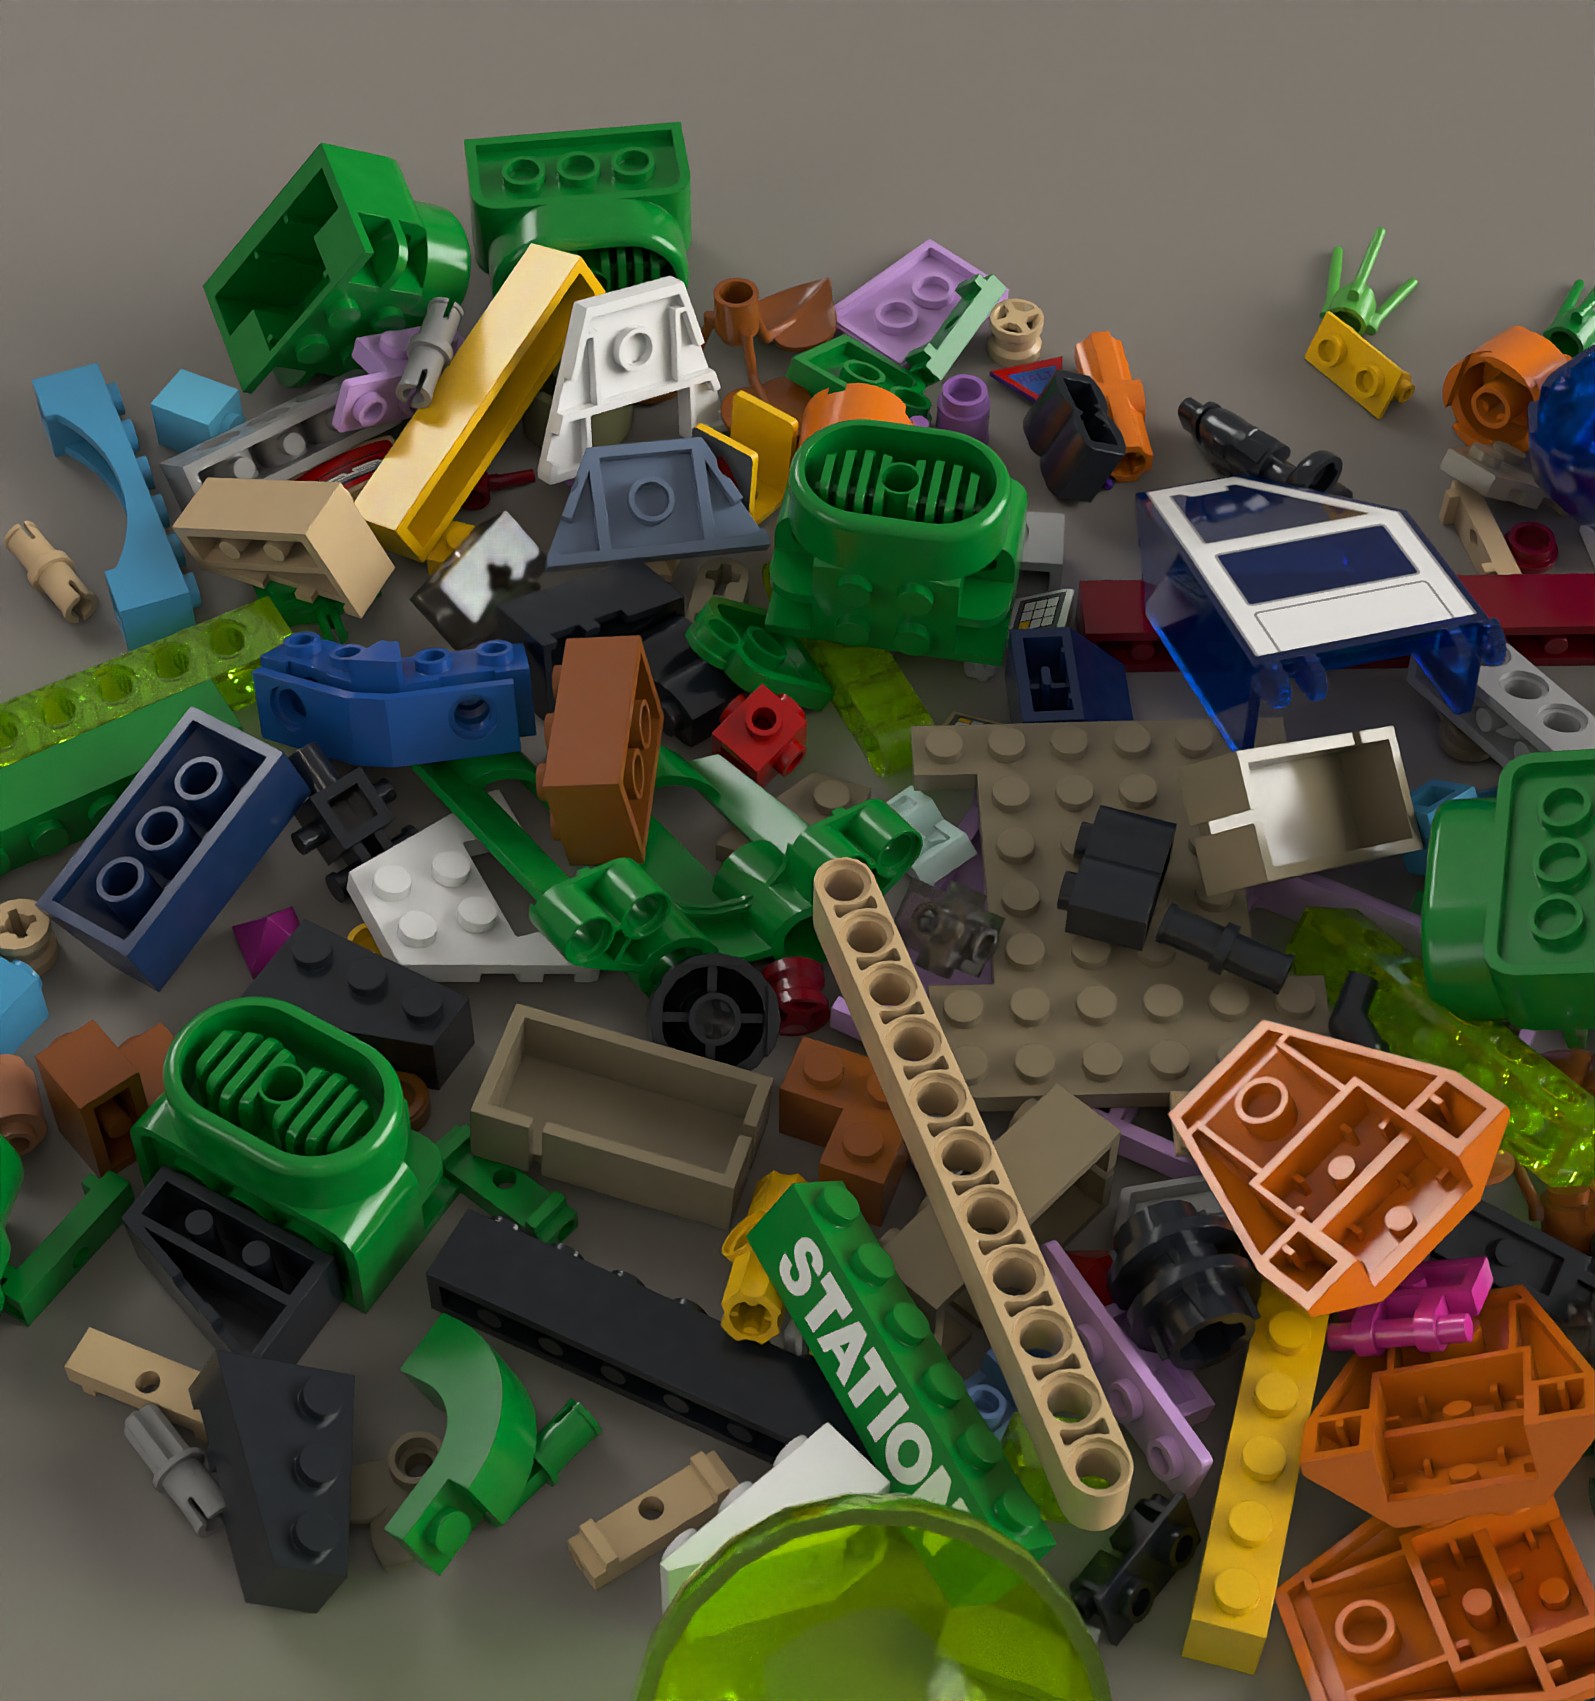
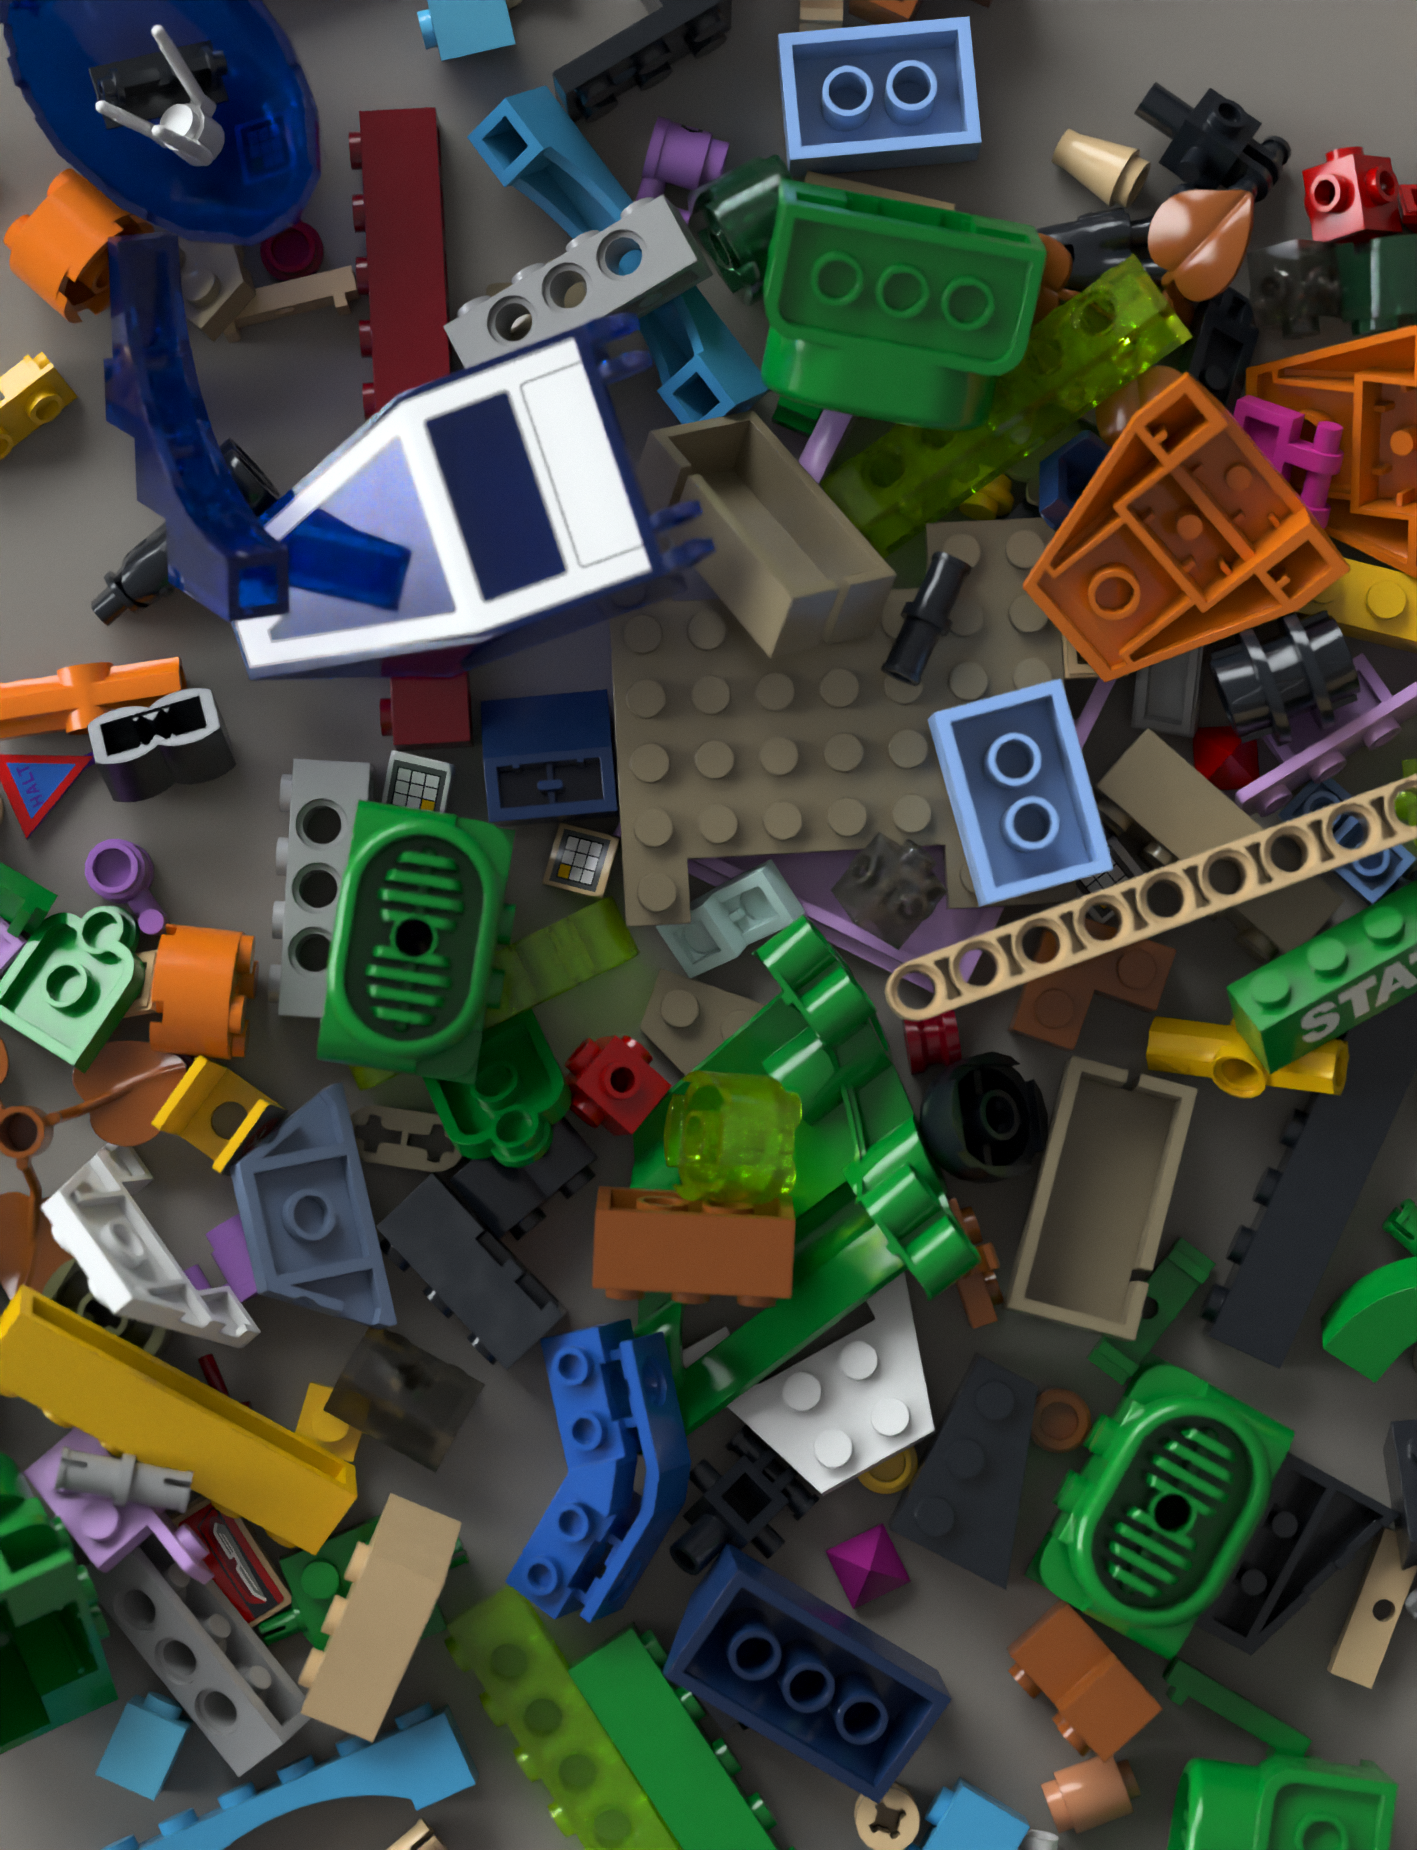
camera: 90 degrees left, 35 degrees up
(596, 1001) = (979, 1287): none -> dark orange plate
(703, 791) = (732, 1138): none -> clear neon green brick
(1049, 1006) = (1020, 792): none -> light blue brick
(1118, 877) = (848, 719): black brick -> none
(1258, 421) = (154, 395): none -> clear blue arch
(1350, 1014) = (995, 502): black arm -> none

